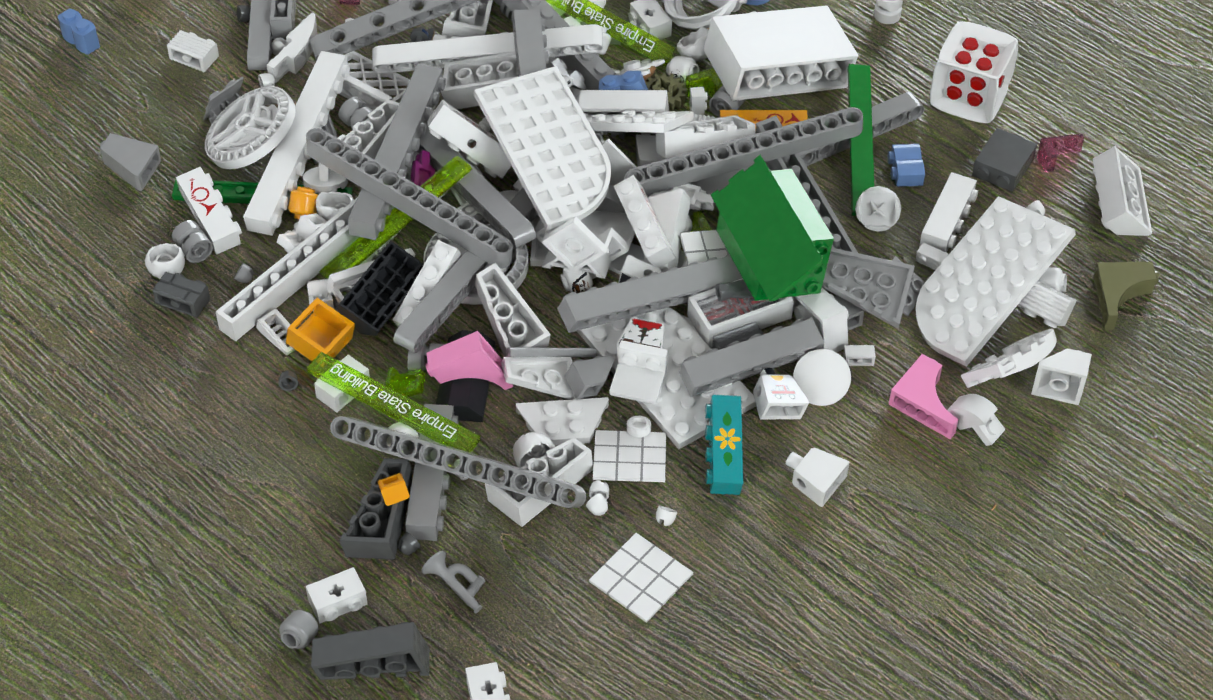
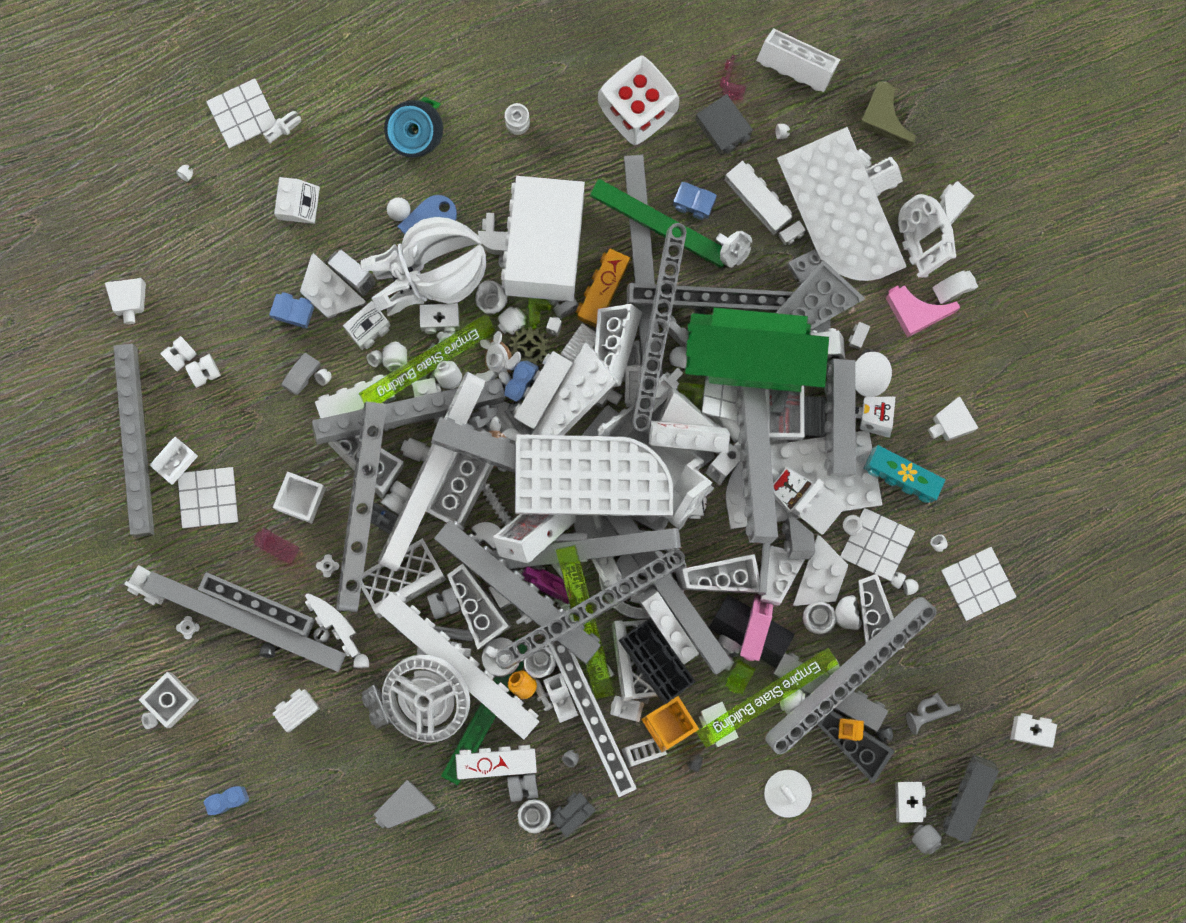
camera: 65 degrees left, 30 degrees up
(293, 479) = (788, 793): none -> white shield
(510, 425) = (819, 617): none -> white hair

